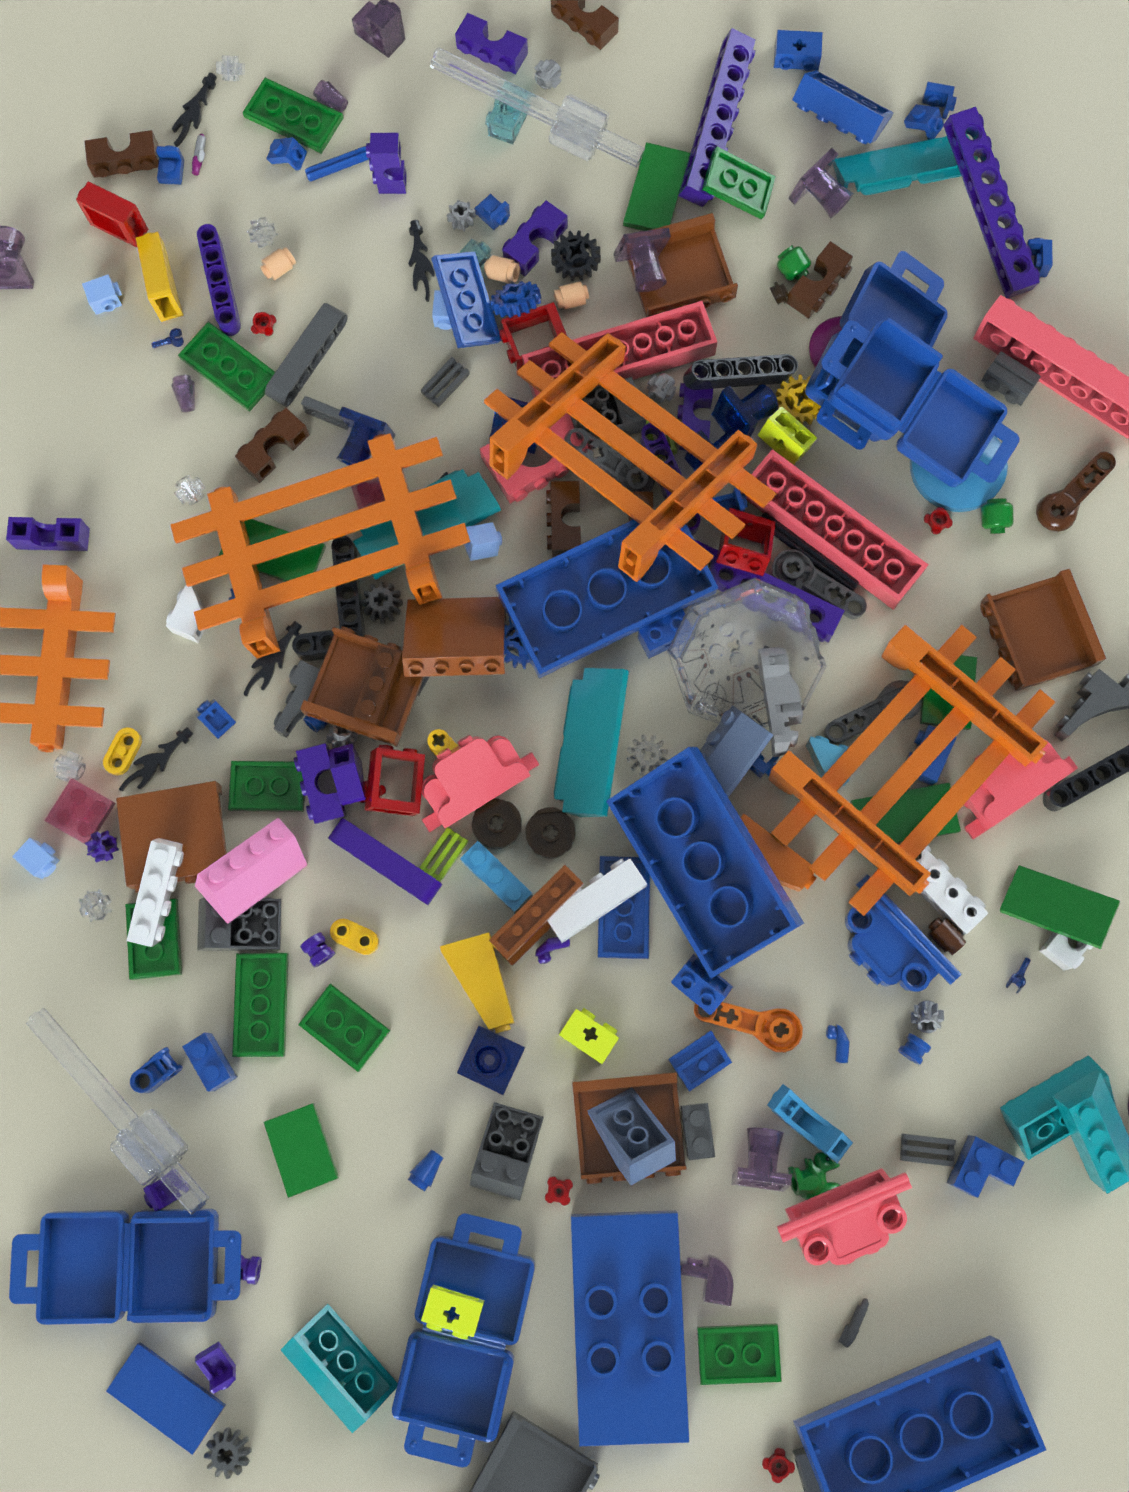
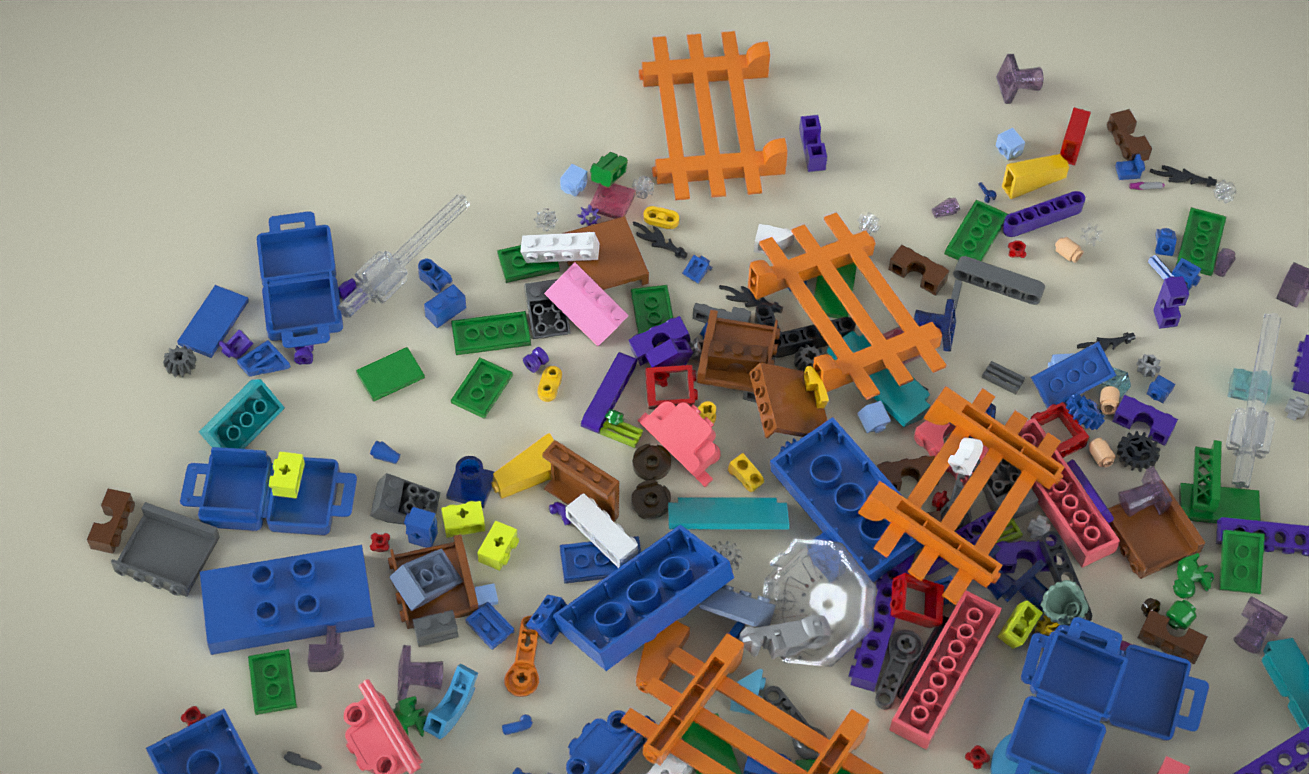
camera: 75 degrees right, 20 degrees down
(31, 808) = (608, 169): none -> green brick
(248, 1329) = (263, 360): none -> blue wing
(340, 139) = (1188, 271): none -> blue bracket
(427, 859) = (614, 417): none -> green plate
(429, 601) = (814, 383): none -> yellow slope
(496, 877) = (616, 456): dark azure arch -> none
(532, 710) = (745, 472): none -> yellow leg
(551, 1090) = (455, 523): none -> neon yellow brick
(554, 1134) = (421, 527): none -> blue brick
(582, 437) = (966, 456): none -> white leg
(622, 180) = (1212, 493): none -> green fence
(628, 317) = (1090, 491): none -> dark purple tile
(654, 1060) = (485, 594): none -> light blue tile
(741, 241) = (1189, 573): none -> green animal
(787, 384) = (1064, 602): none -> sand green hair

